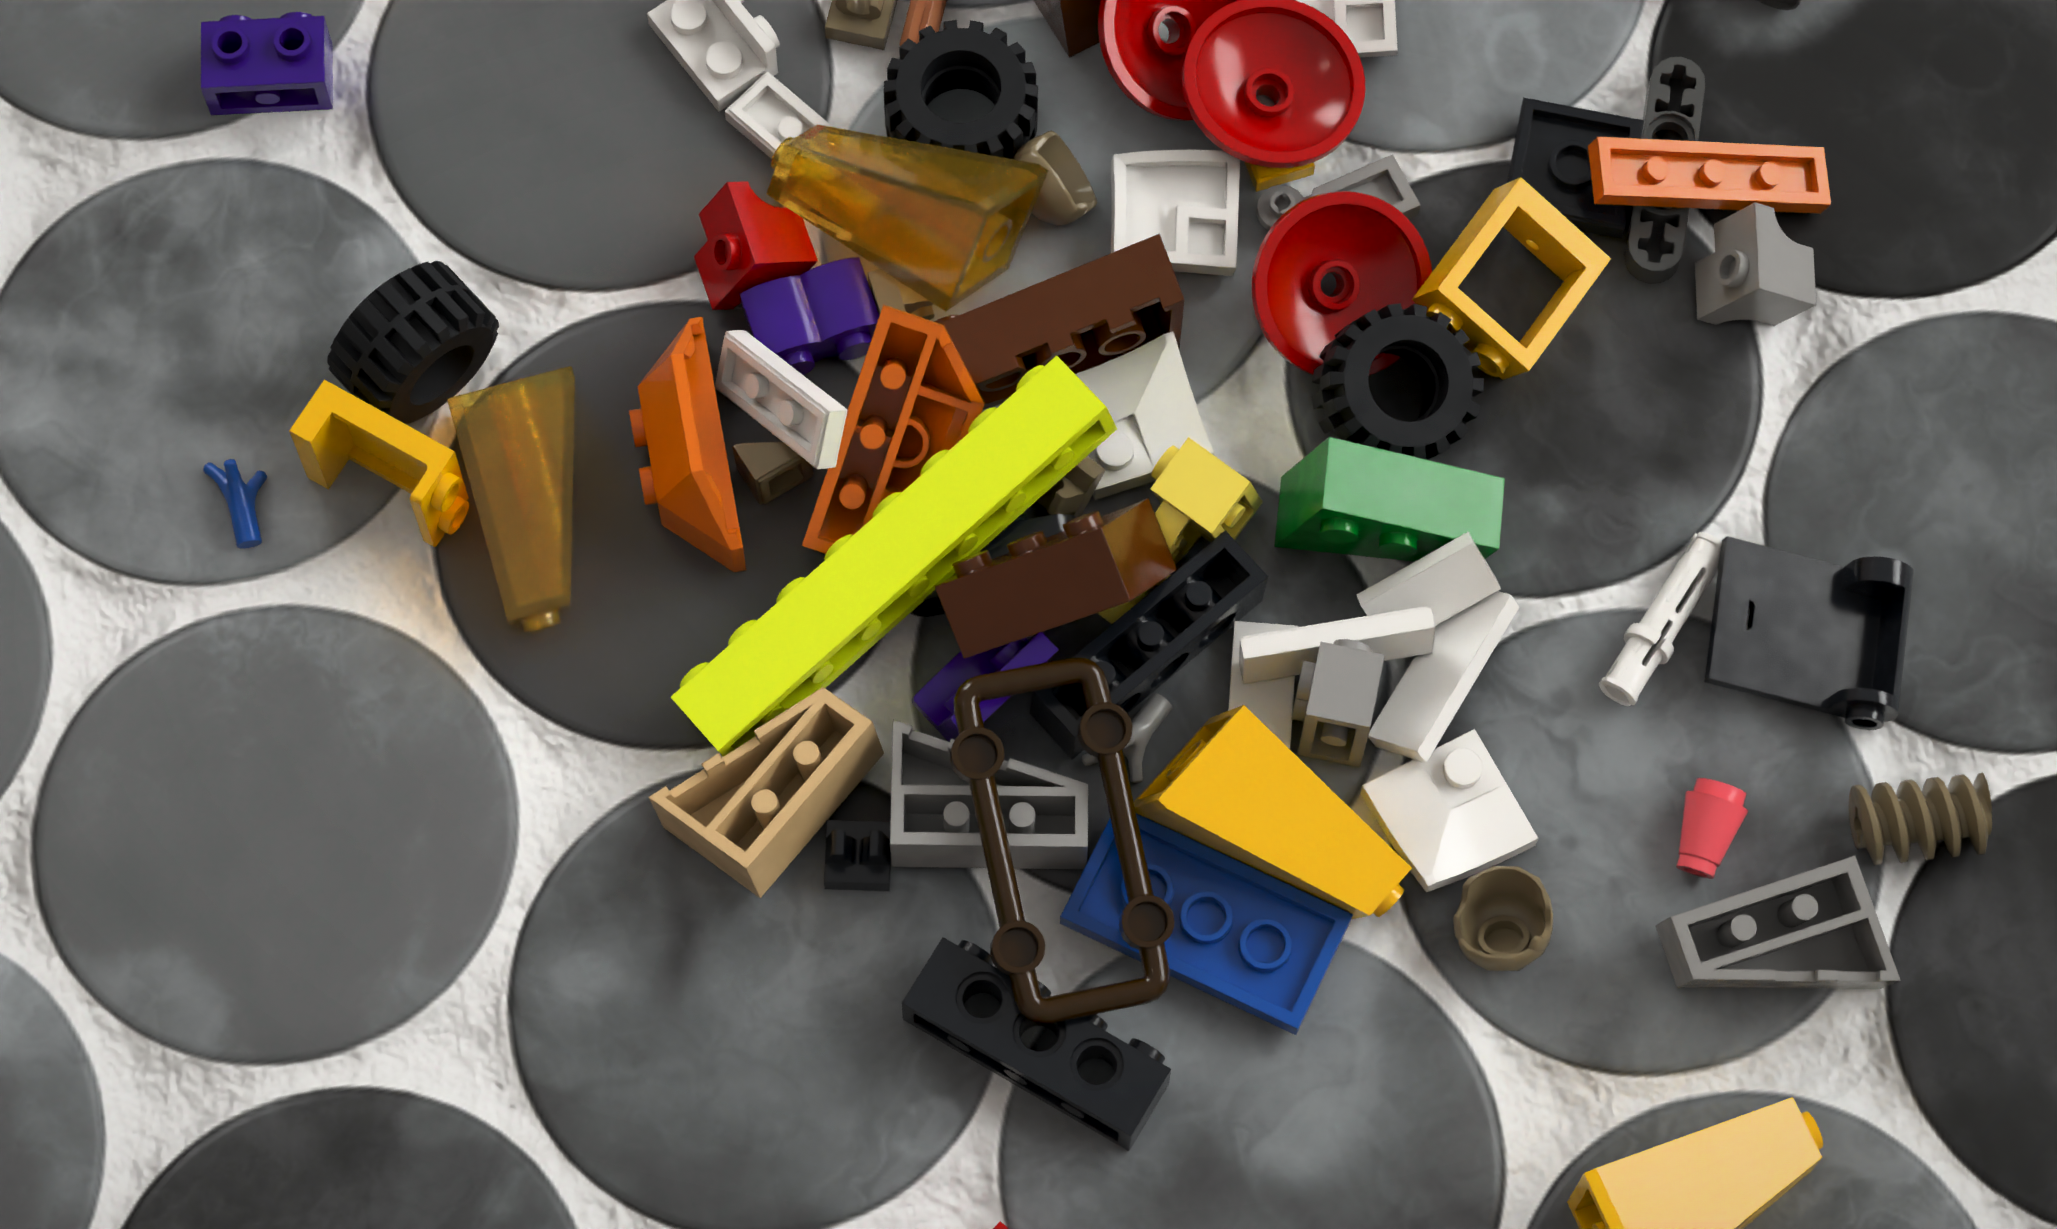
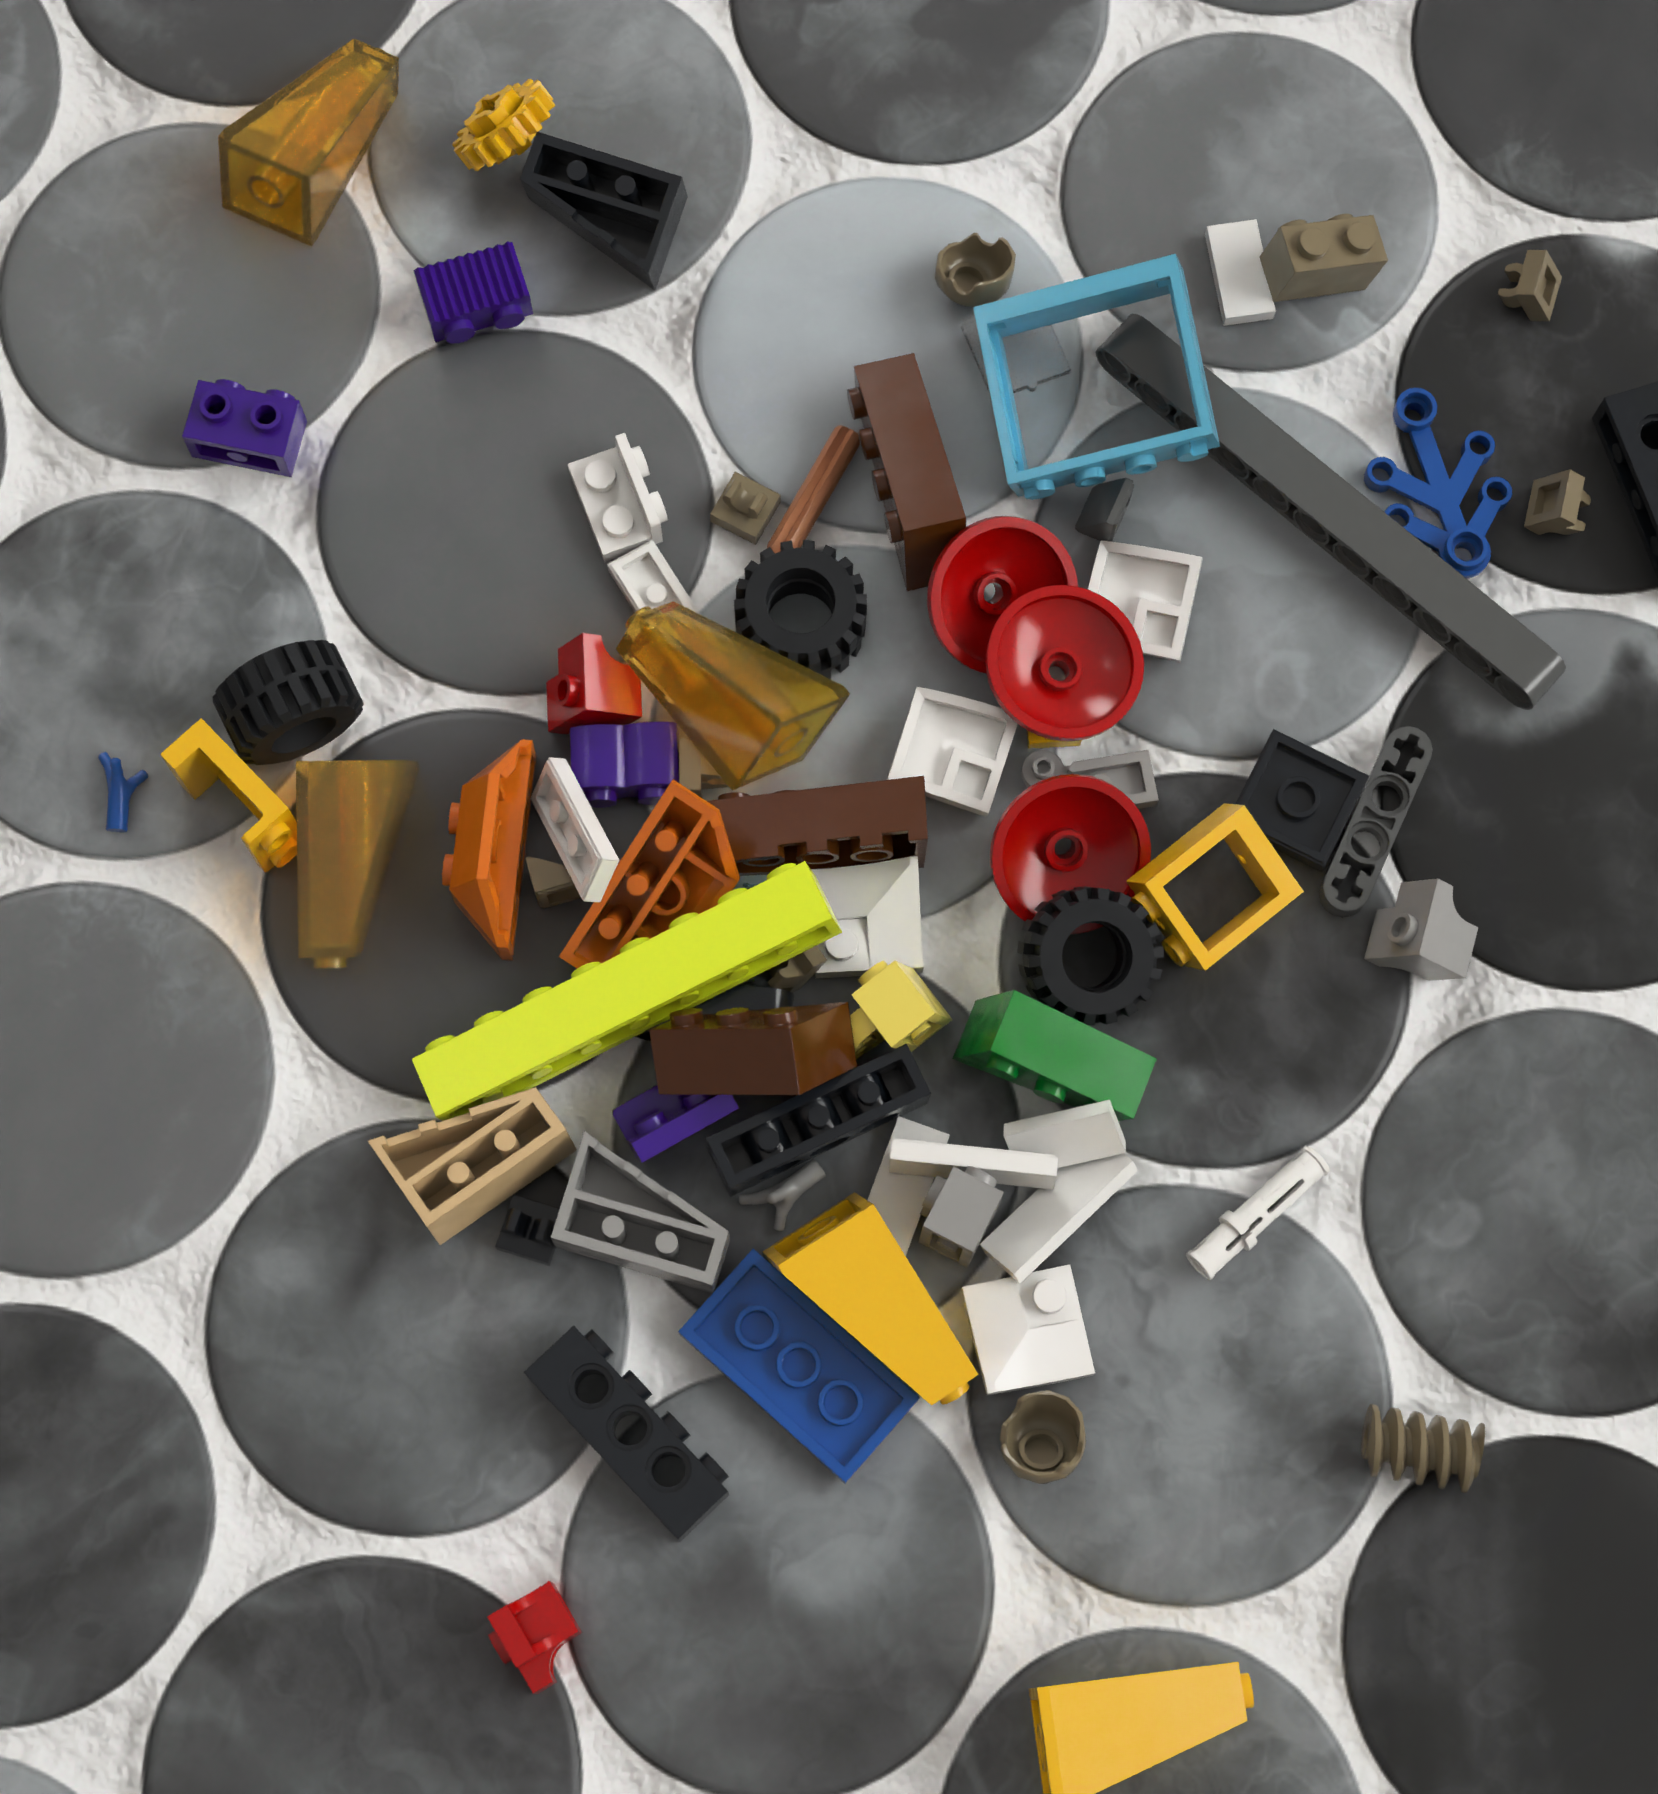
camera: 15 degrees right, 5 degrees up
(1019, 944) = (742, 1359): dark brown bar -> none
(1066, 190) = (869, 702): dark tan hair -> none
(1708, 174) = (1408, 840): orange plate -> none
(1709, 825) = (1241, 1403): coral cone -> none
(1784, 935) = (1273, 1516): light grey wedge -> none
(1814, 631) = (1381, 1258): black door -> none

